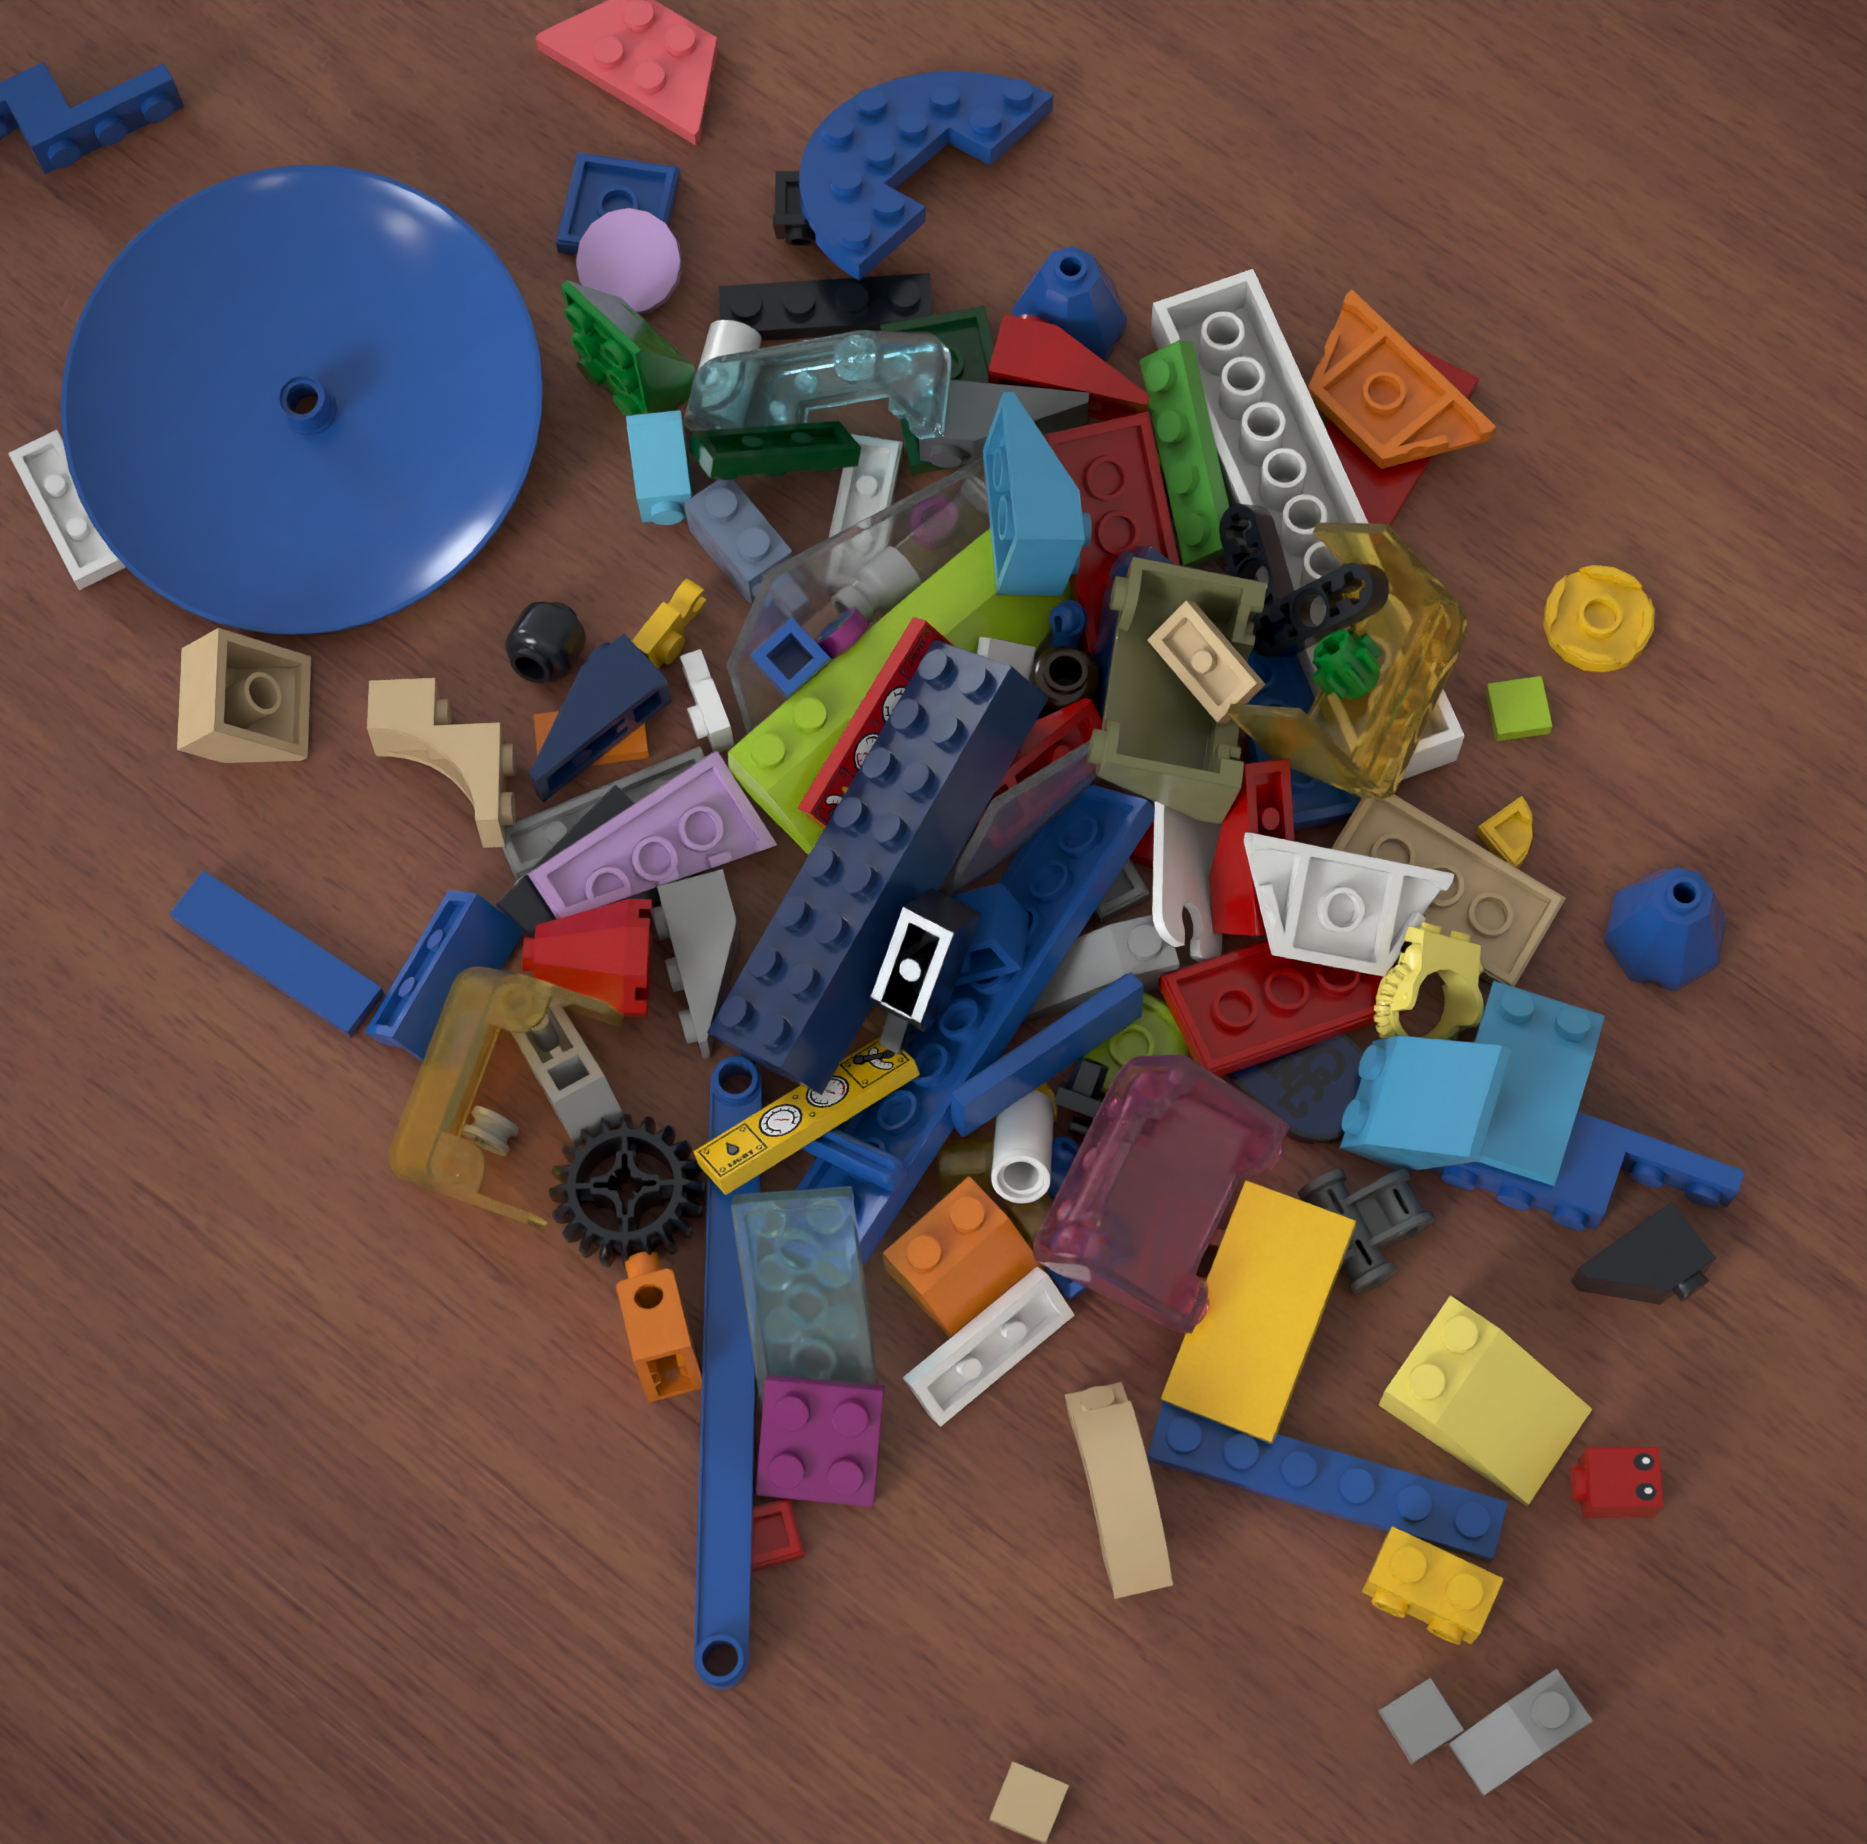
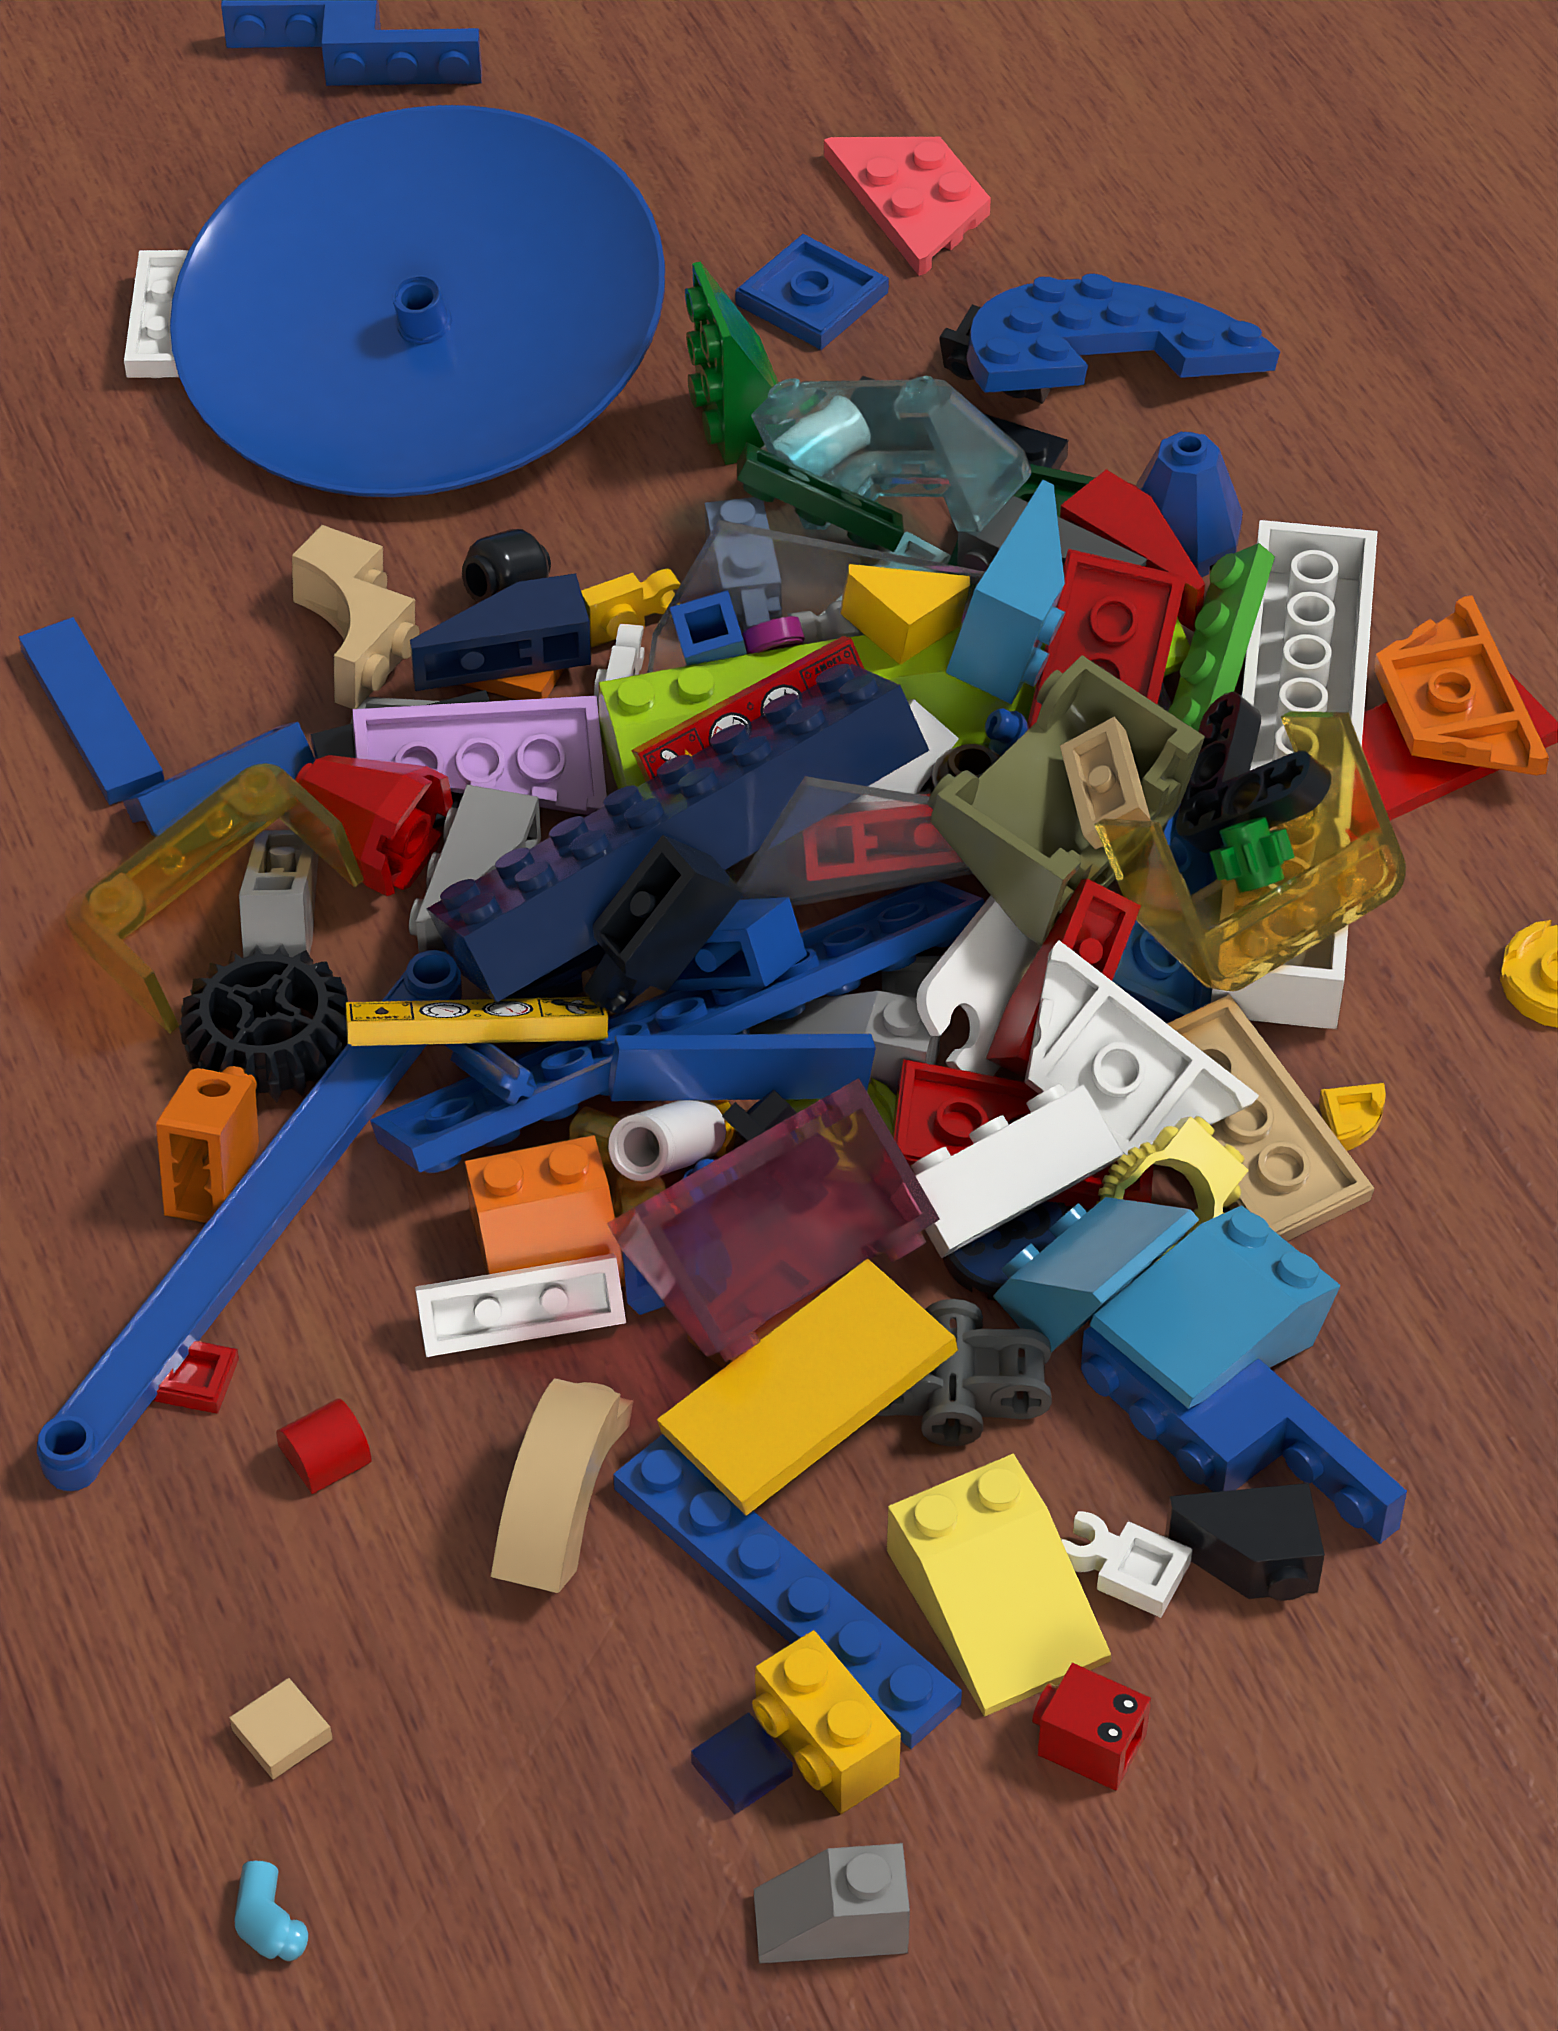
camera: 25 degrees right, 20 degrees down
(243, 700) = (205, 505): tan slope -> none
(490, 1130) = (176, 921): light grey bush -> none
(630, 258) = (796, 321): lavender tile -> none
(660, 466) = (703, 467): medium azure slope -> none
(804, 1285) = (358, 1160): clear light blue plate -> none
(820, 1440) = (298, 1305): magenta plate -> none
(911, 1546) = (325, 1445): none -> red brick
(935, 559) = (903, 607): none -> yellow slope
(1312, 1040) = (1015, 1166): none -> white brick
(1382, 1645) = (741, 1763): none -> clear blue tile
(1421, 1721) = (735, 1852): light grey tile -> none
(1518, 708) = (1430, 1013): lime tile -> none
(1575, 1327) = (1133, 1566): none -> white plate
(1666, 928) = (1468, 1252): blue cone -> none

